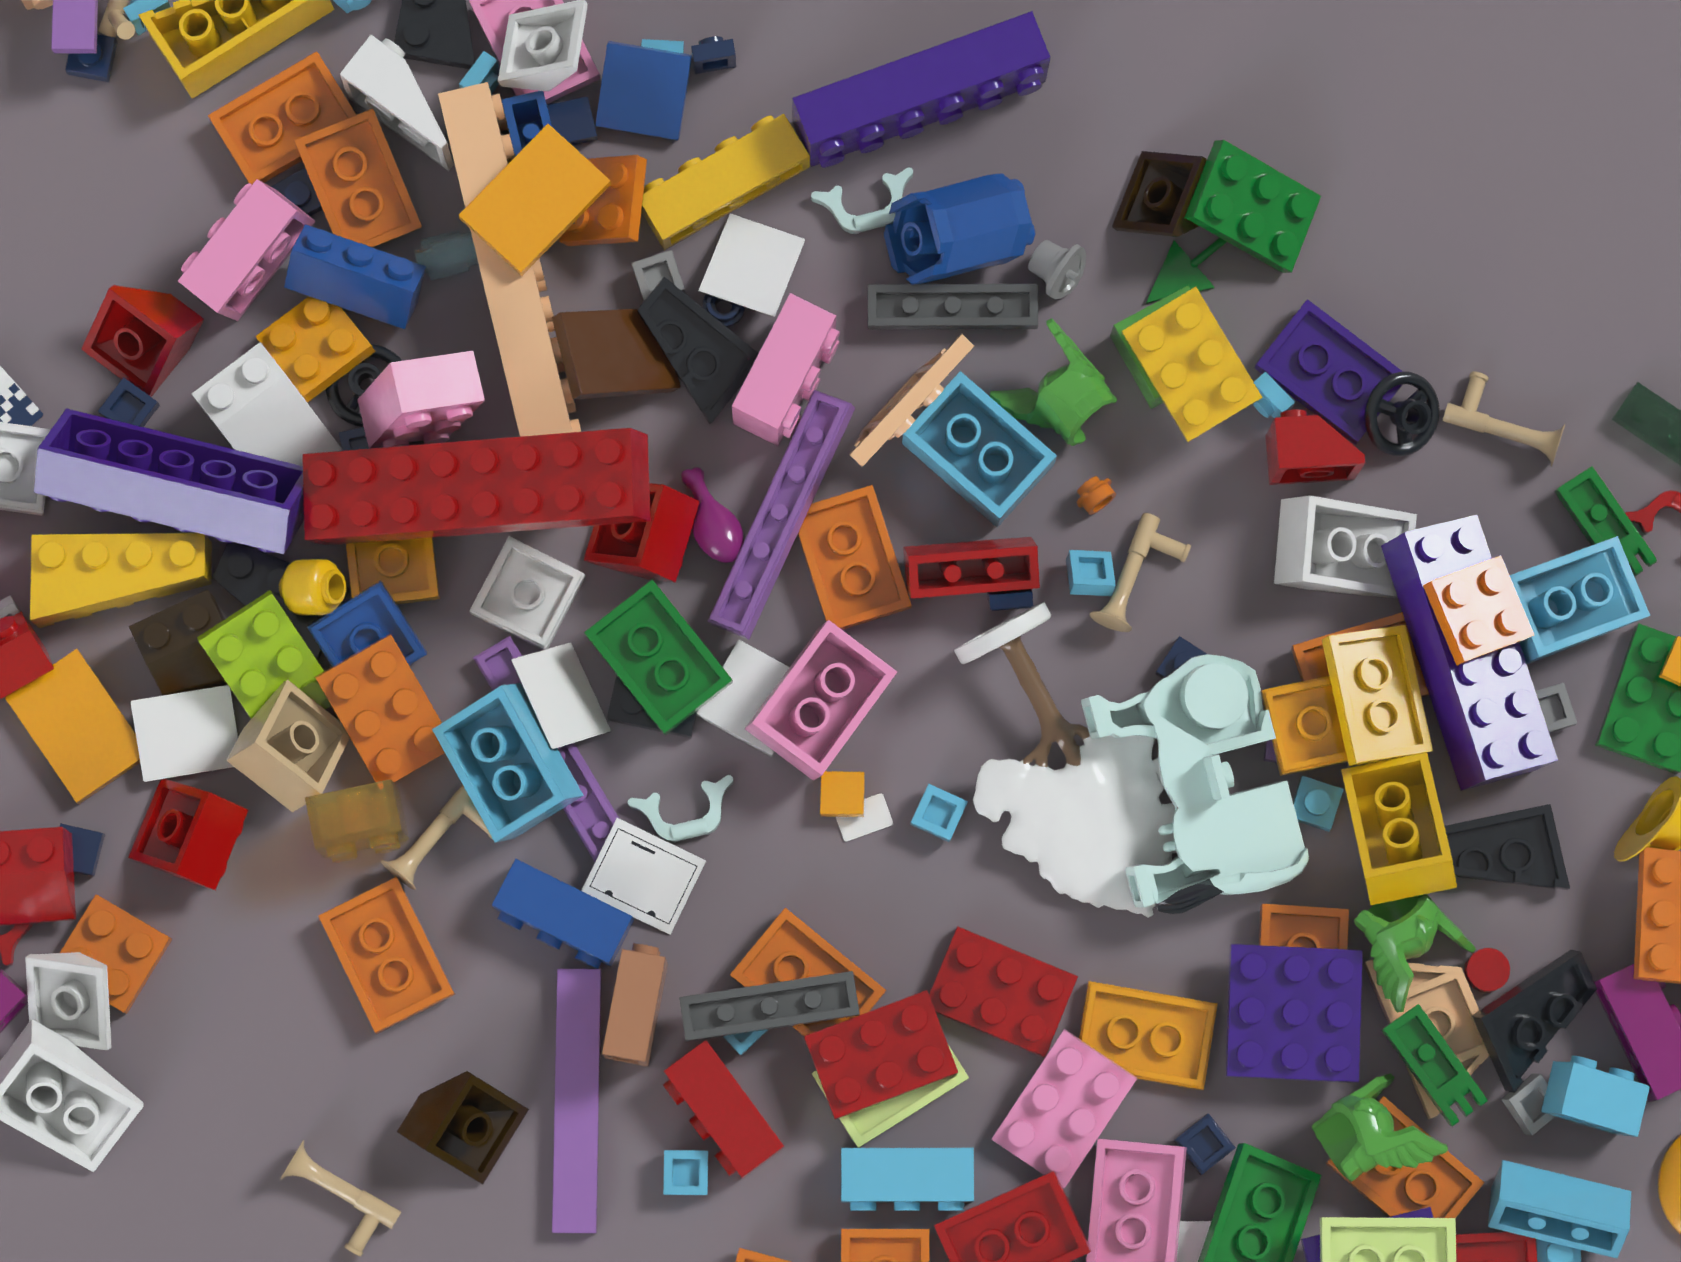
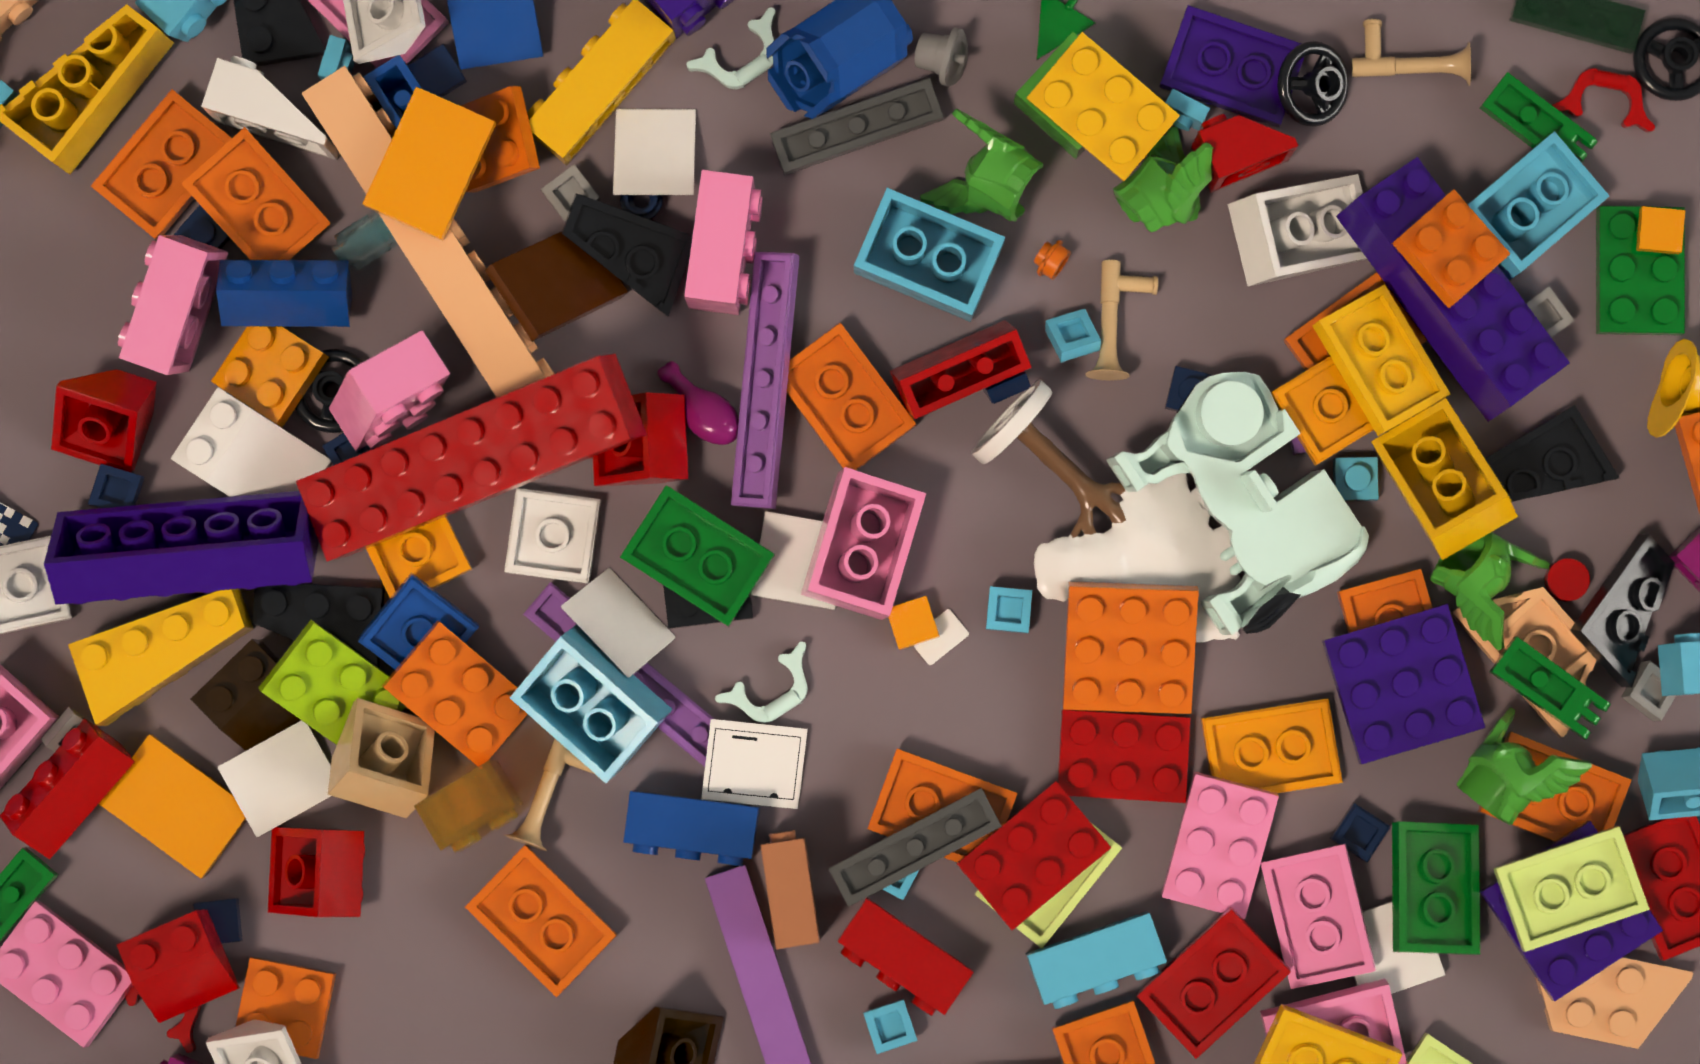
camera: 10 degrees left, 5 degrees up
(312, 587) = (349, 602): yellow head -> none
(919, 390) = (853, 217): light nougat wing -> none
(1042, 888) = (1130, 647): none -> orange plate
(1228, 459) = (1166, 184): none -> bright green helmet

